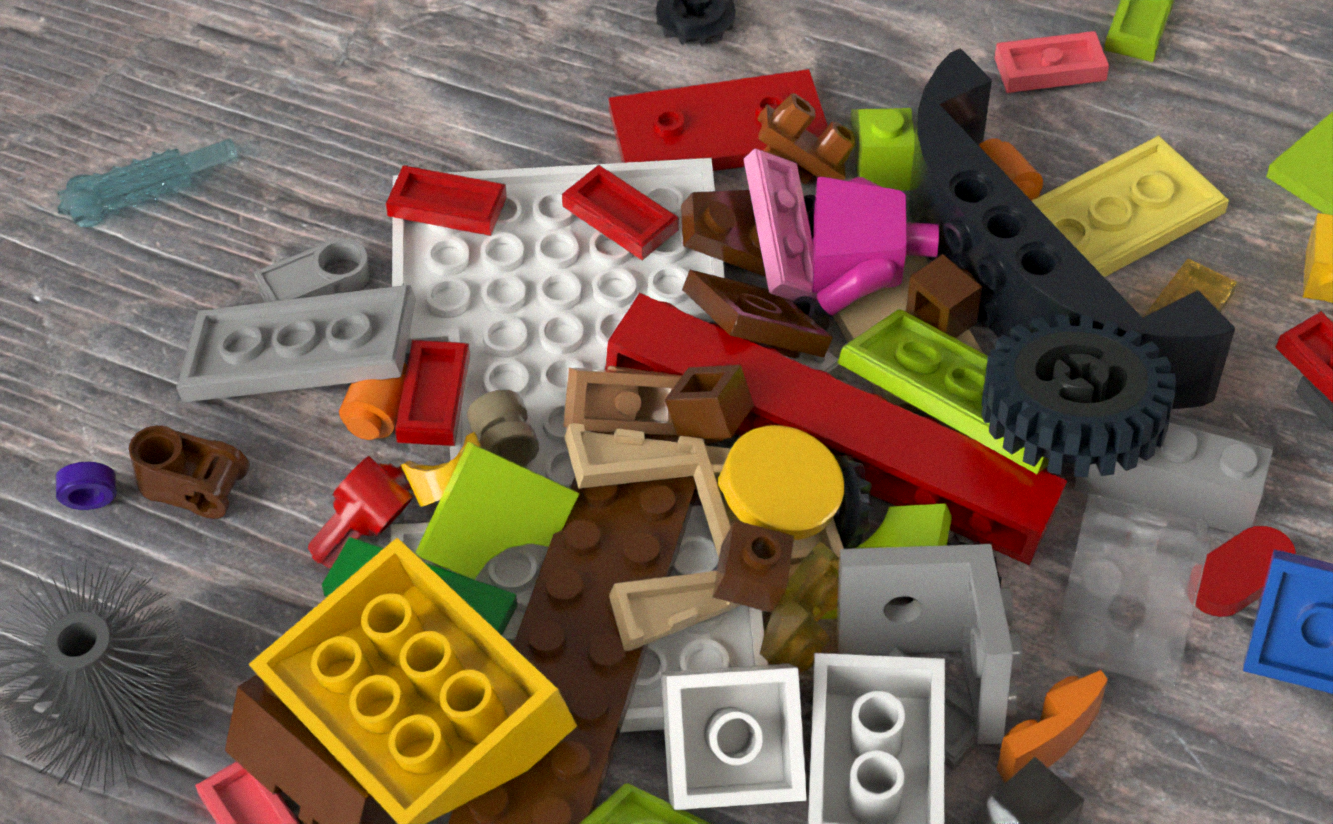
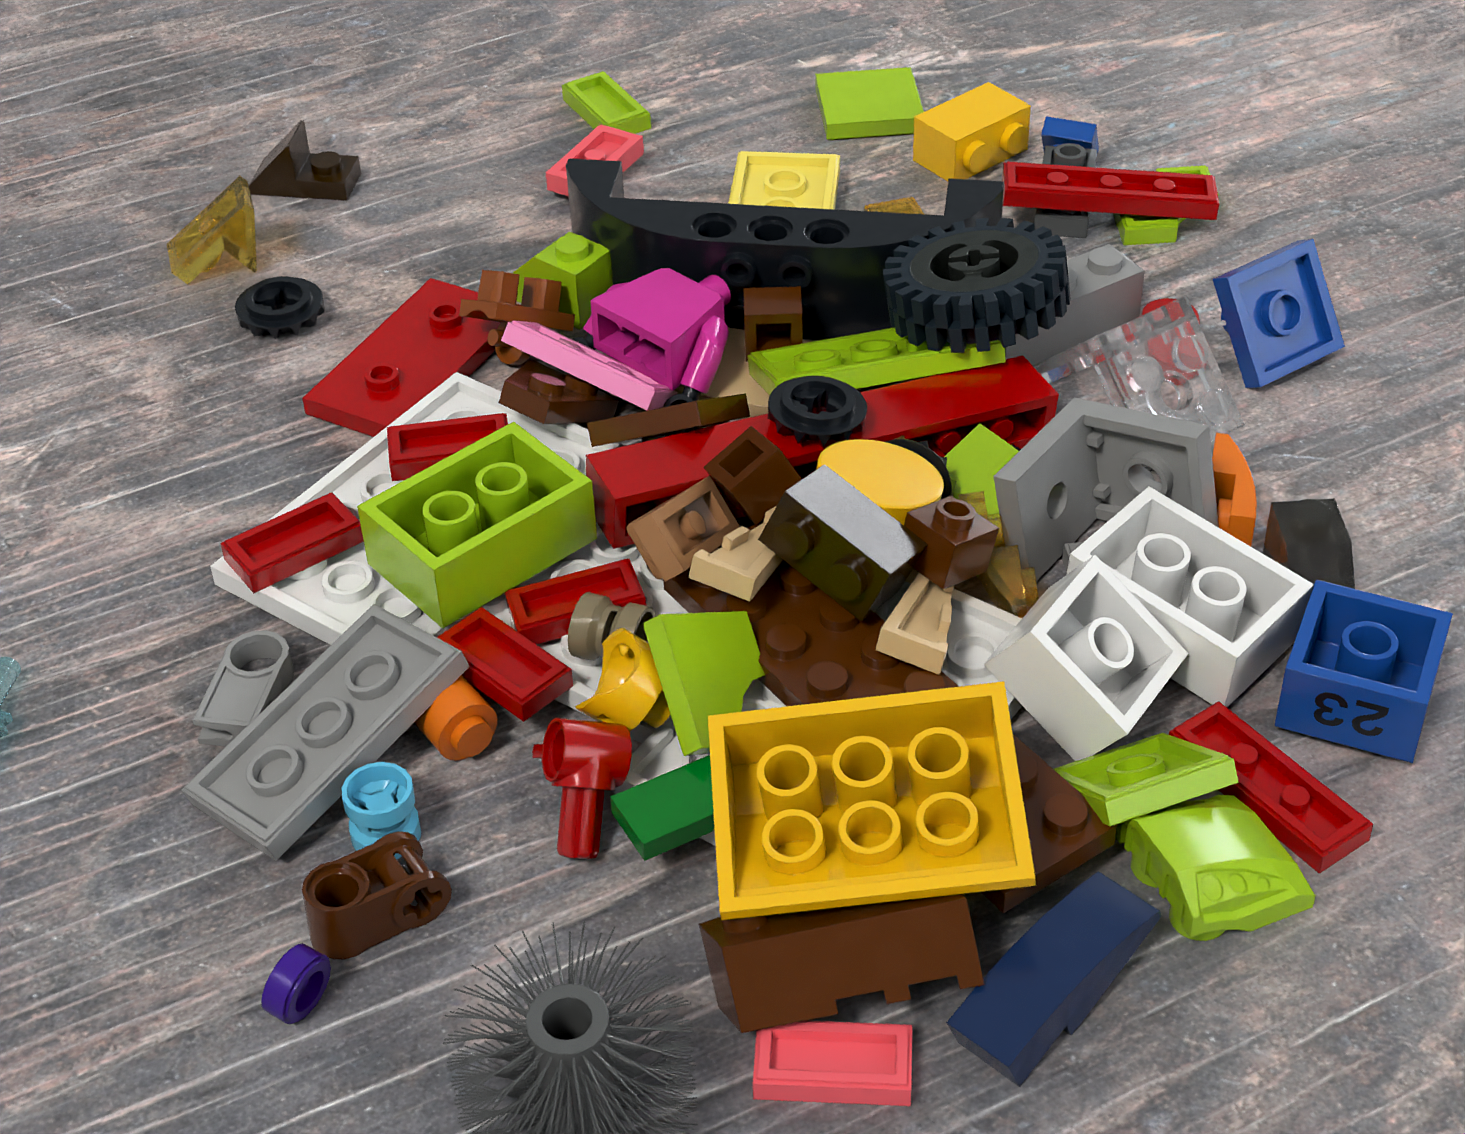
camera: 50 degrees left, 10 degrees down
(258, 424) = (379, 802): none -> medium azure wheel
(528, 283) = (478, 523): none -> lime brick
(539, 387) = (546, 607): none -> red tile
(675, 502) = (842, 542): none -> dark brown brick
(840, 376) = (797, 400): none -> black gear

